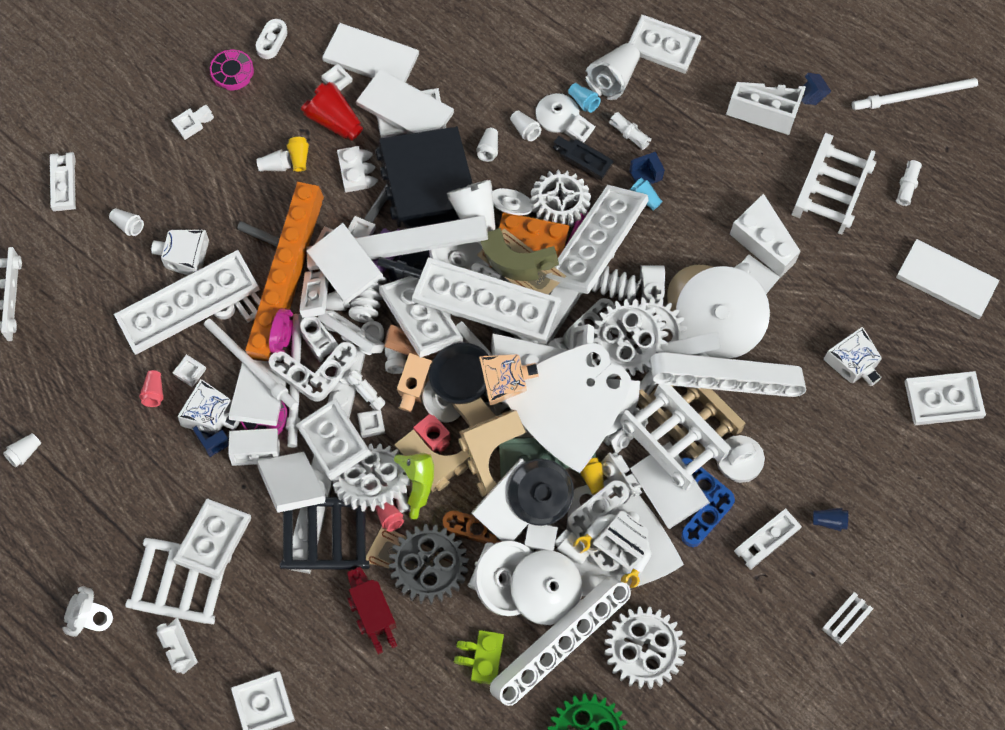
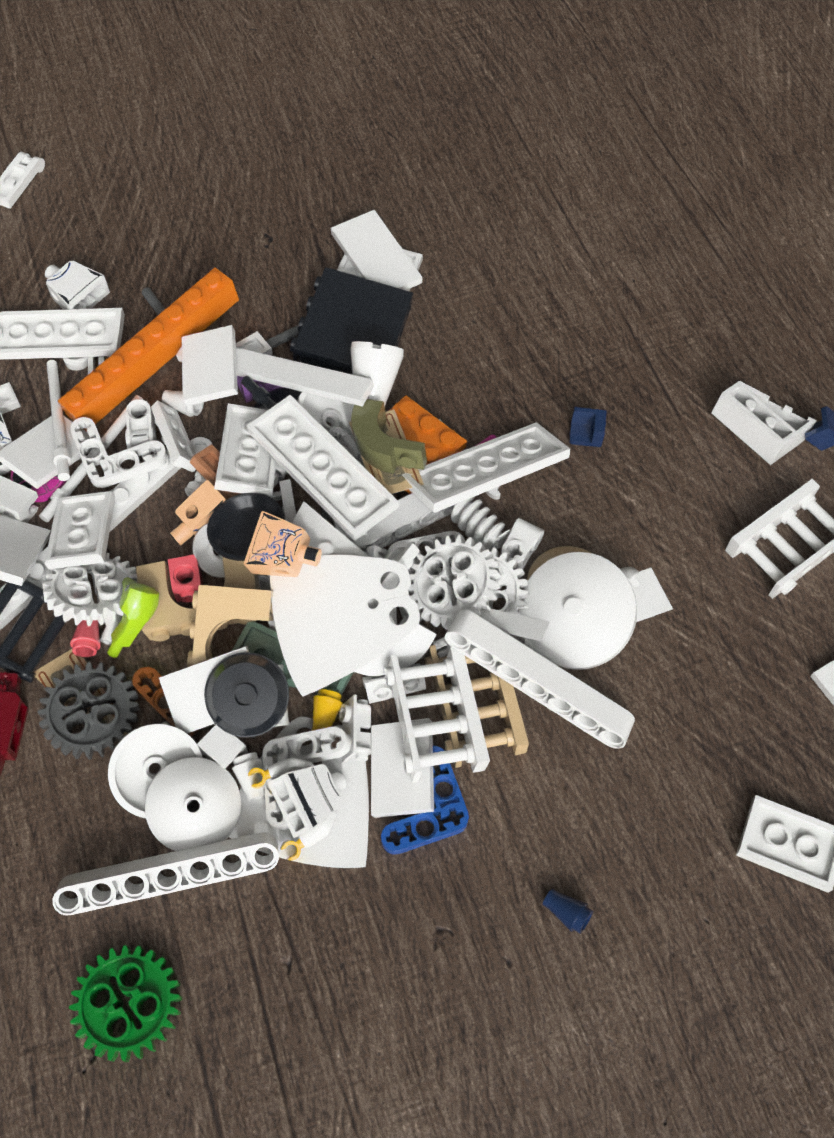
camera: 30 degrees right, 5 degrees down
(127, 221) = (45, 240): white cone -> none
(190, 123) = (165, 179): white plate -> none
(231, 69) = (238, 154): tile -> none
(270, 40) = (292, 142): white plate -> none
(275, 161) = (219, 249): white cone -> none
(281, 331) = (105, 400): dark pink tile -> none
(298, 153) = (246, 249): yellow cone -> none
(314, 294) = (159, 383): white plate -> none
(332, 111) = (301, 225): red cone -> none
(337, 76) = (330, 204): white tile -> none
(354, 169) = (291, 291): white plate -> none
(364, 304) = (210, 415): white piece -> none
(366, 390) = (150, 501): white axle -> none
(369, 53) = (371, 189): white tile -> none
(371, 423) = (136, 537): white tile -> none
(486, 657) = (82, 846): lime hinge -> none
(488, 146) = (436, 328): white cone -> none
(511, 202) = (423, 391): white dish -> none
(526, 126) = (488, 330): white cone -> none
(555, 120) = (528, 339): white dish -> none
(576, 194) = (468, 401): white gear -> none
(579, 129) = (542, 357): white tile -> none
(583, 157) = (529, 384): black hinge -> none
(584, 97) = (568, 331): medium azure cone -> none
(613, 71) = (610, 314): white cone -> none
(630, 130) = (595, 382): white pin -> none
(636, 668) = (231, 955): white gear -> none
(644, 187) = (574, 442): medium azure cone -> none
(664, 43) = (685, 316): white tile -> none
(744, 459) = (504, 784): white tile -> none
(766, 236) = (678, 555): white wedge -> none
(768, 538) = (478, 891): white plate -> none
(855, 358) = (706, 739): white torso -> none
(860, 604) = (543, 1033): white tile -> none

